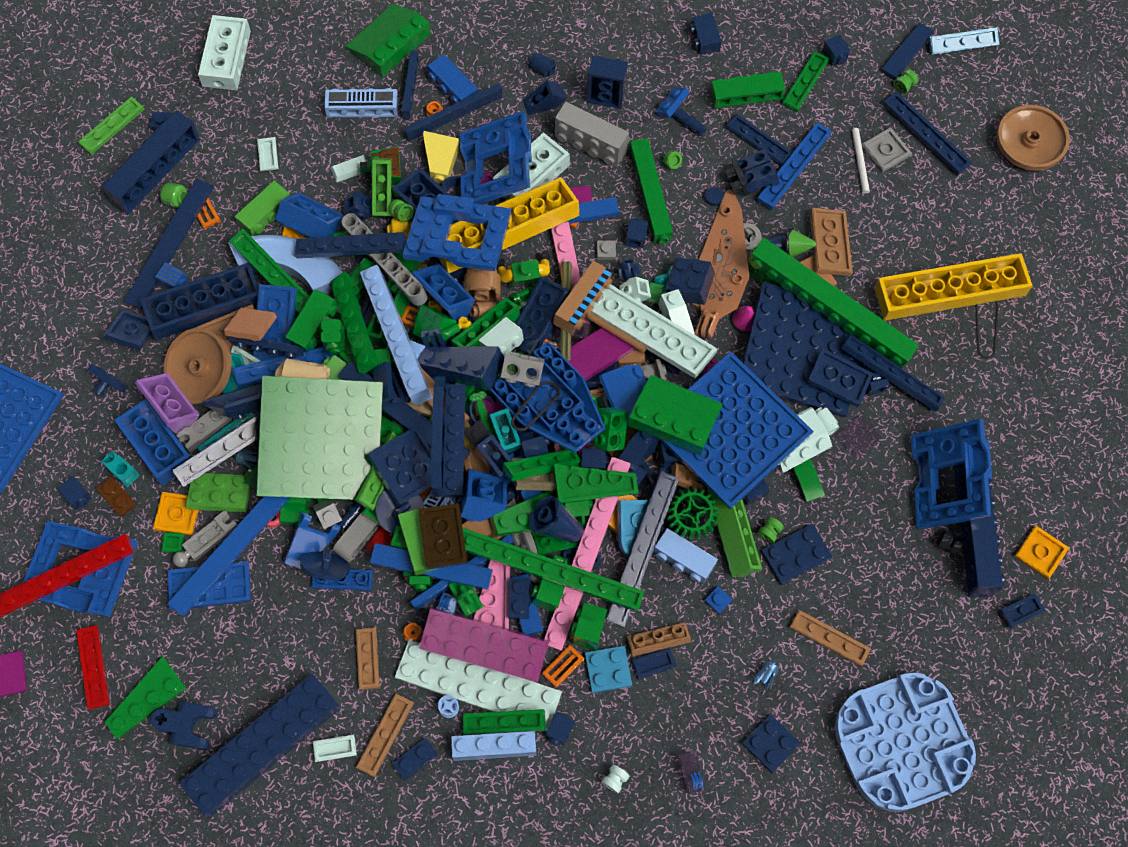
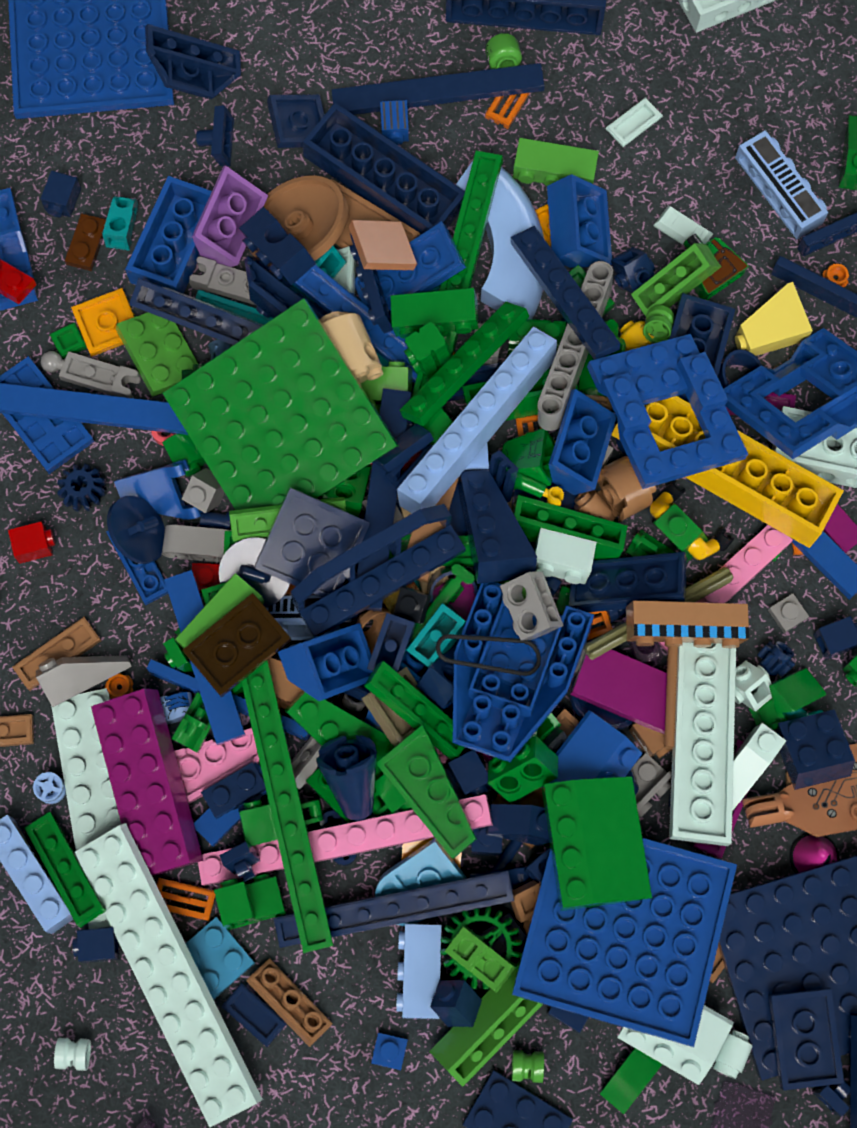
camera: 60 degrees right, 5 degrees up
(49, 365) = (191, 63): none -> dark blue wedge
(221, 380) = (276, 247): none -> dark blue arch
(277, 578) = (76, 480): none -> dark blue gear
(288, 633) = (31, 542): none -> red brick
(390, 653) = (73, 675): none -> light grey slope
(564, 613) = (240, 860): none -> dark blue tile
(603, 695) = (168, 976): none -> light aqua plate
(653, 270) = (795, 691): none -> green slope
(701, 514) = (480, 959): none -> bright green slope
(715, 544) = (456, 1003): none -> dark blue brick

